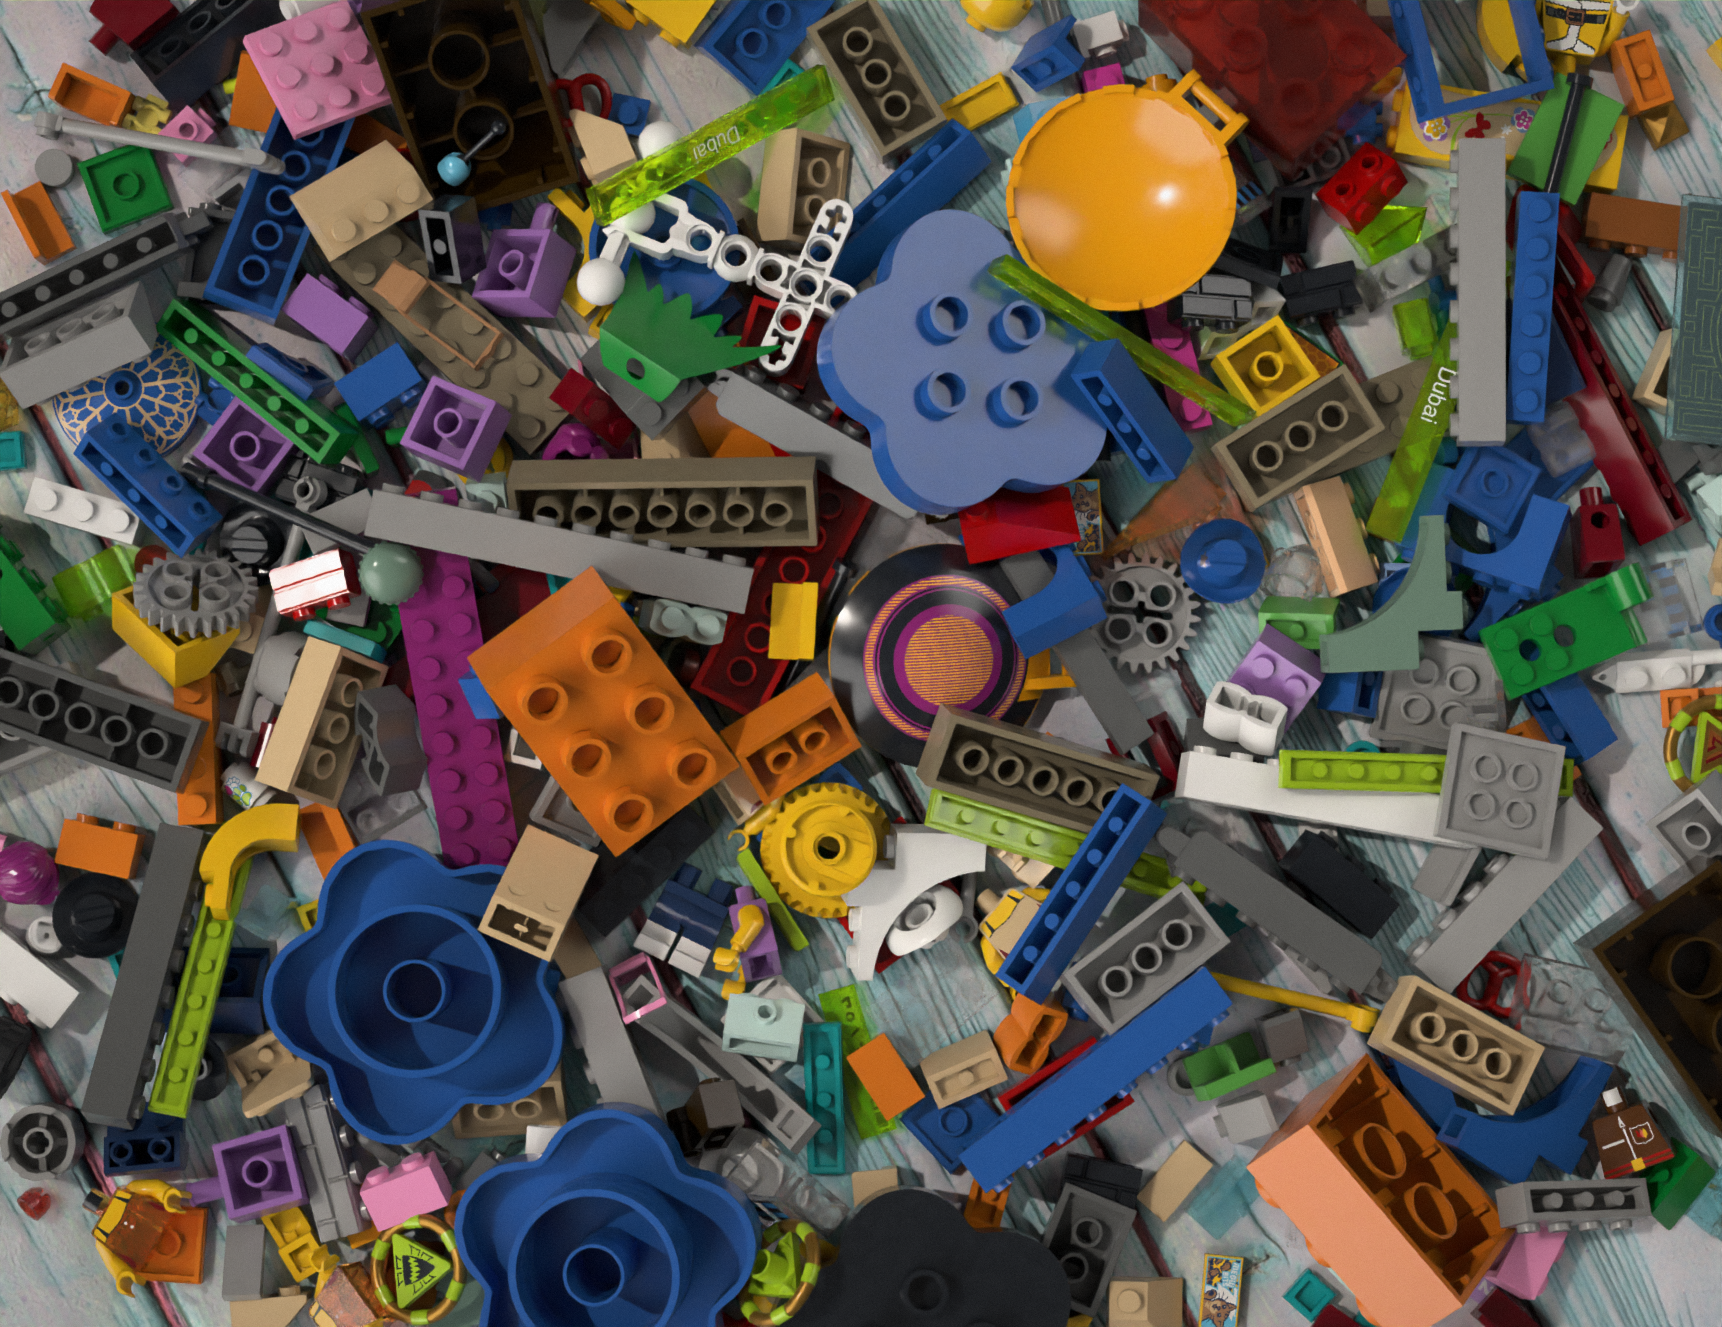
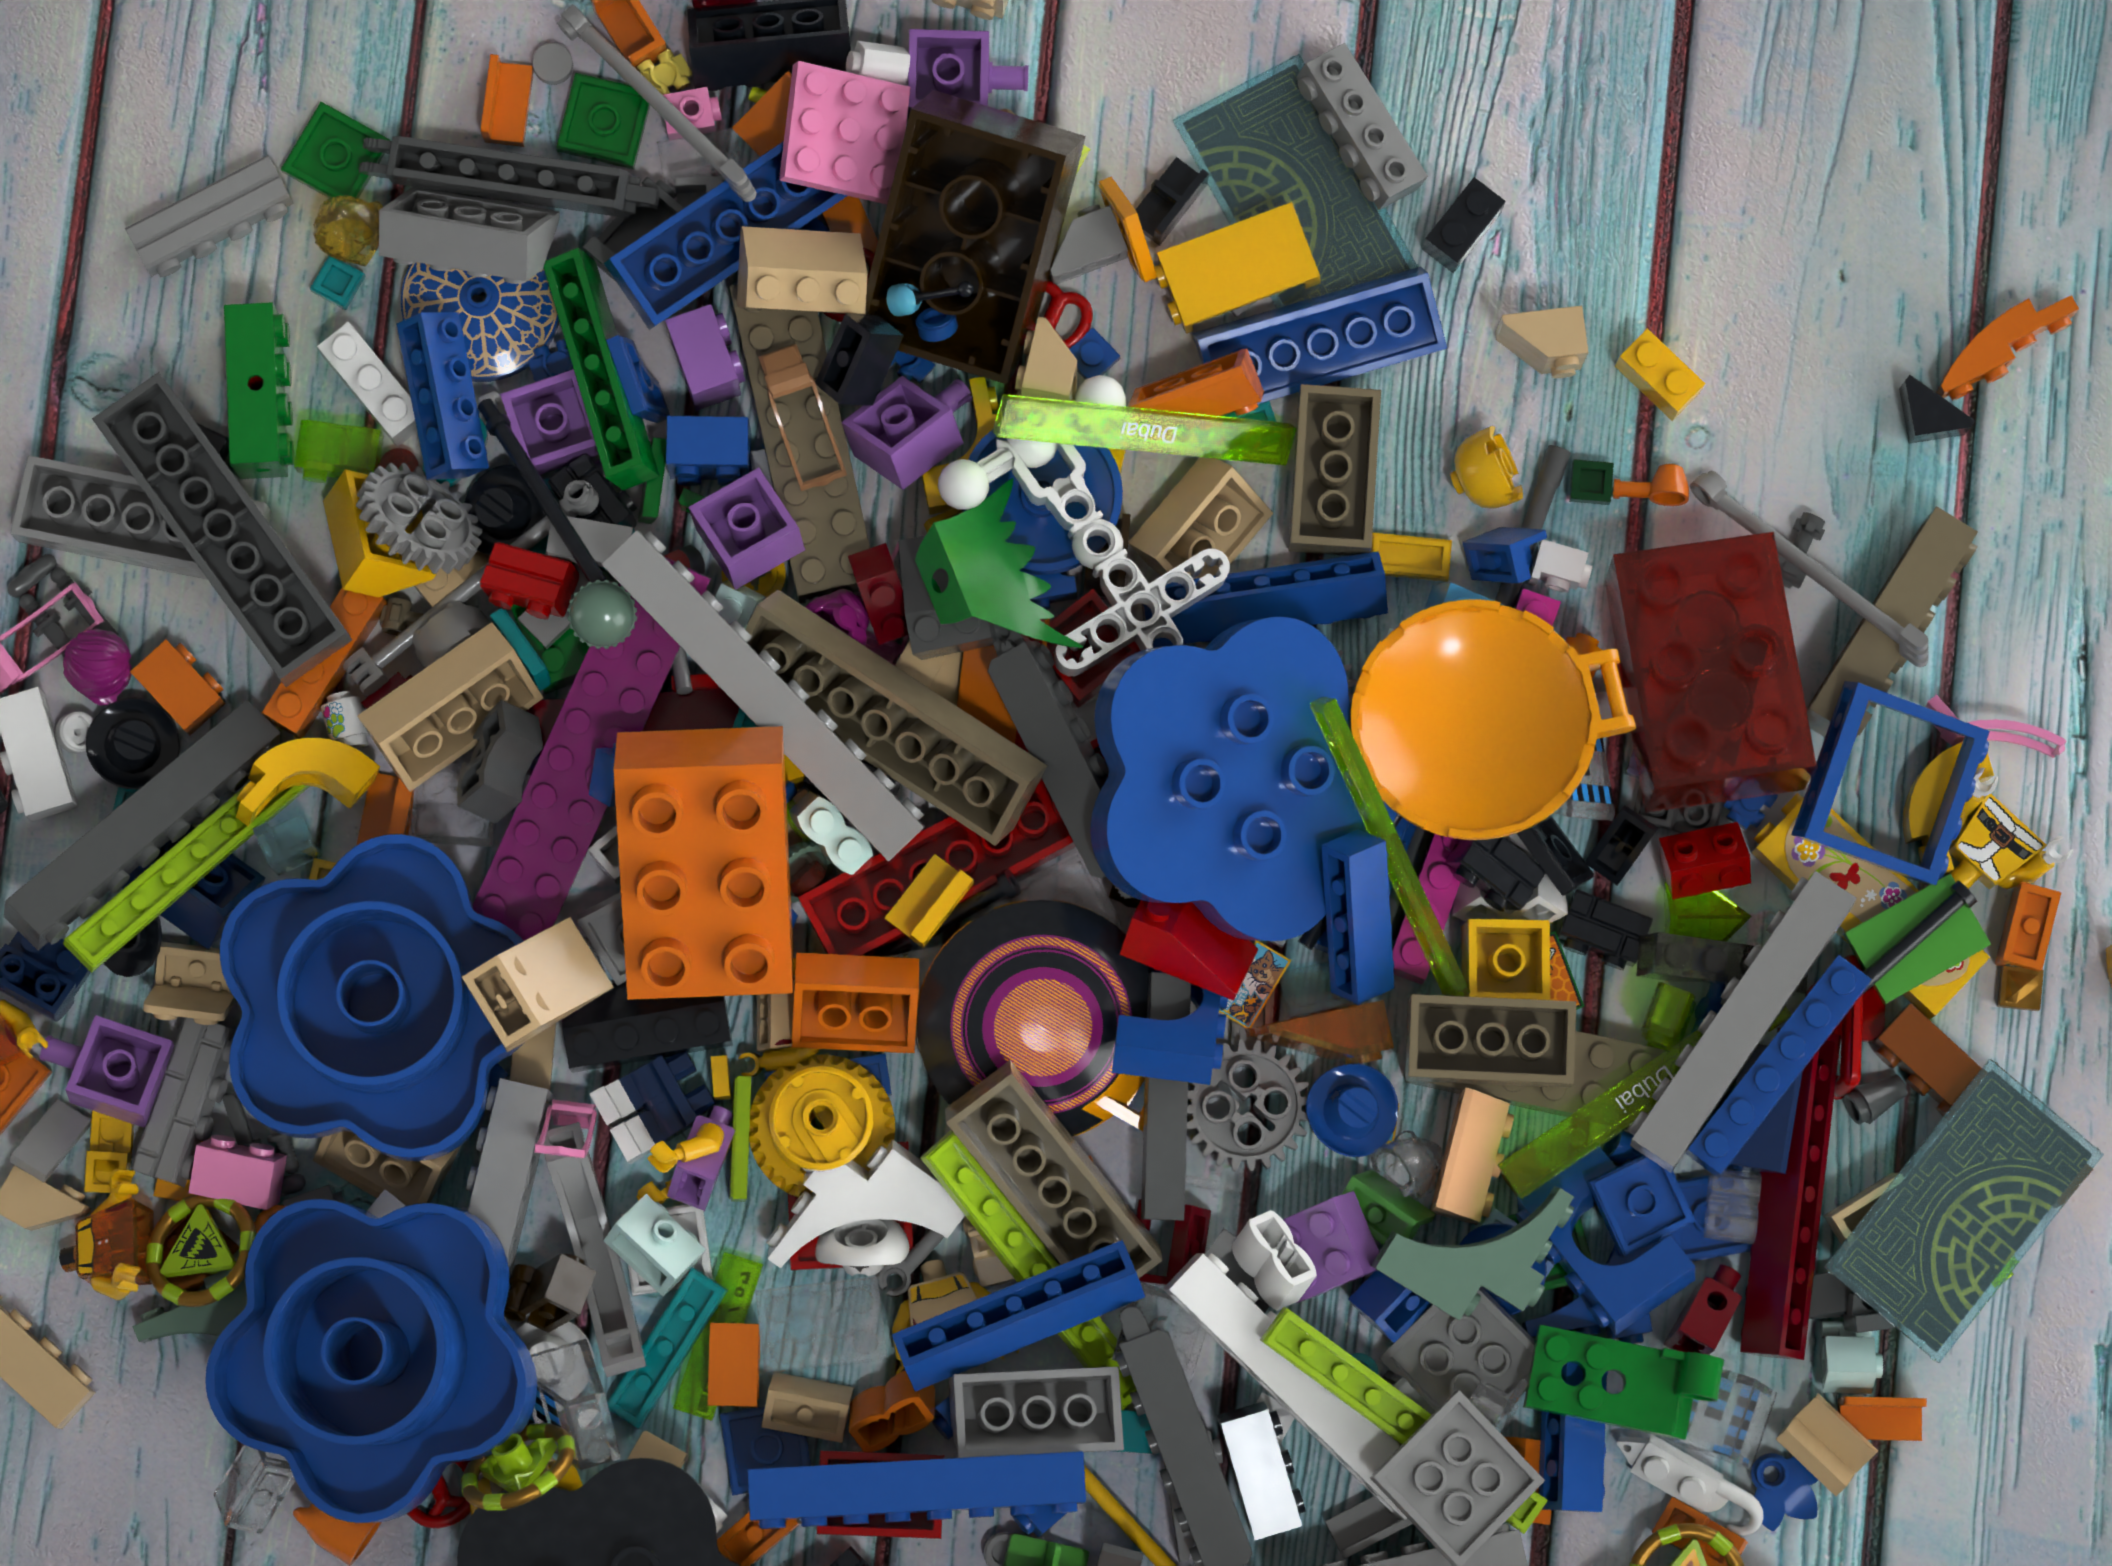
camera: 30 degrees right, 5 degrees down
(493, 172) = (935, 325): none -> blue tile
(724, 864) = (721, 1077): none -> yellow tile
(735, 81) = (1207, 389): none -> orange slope

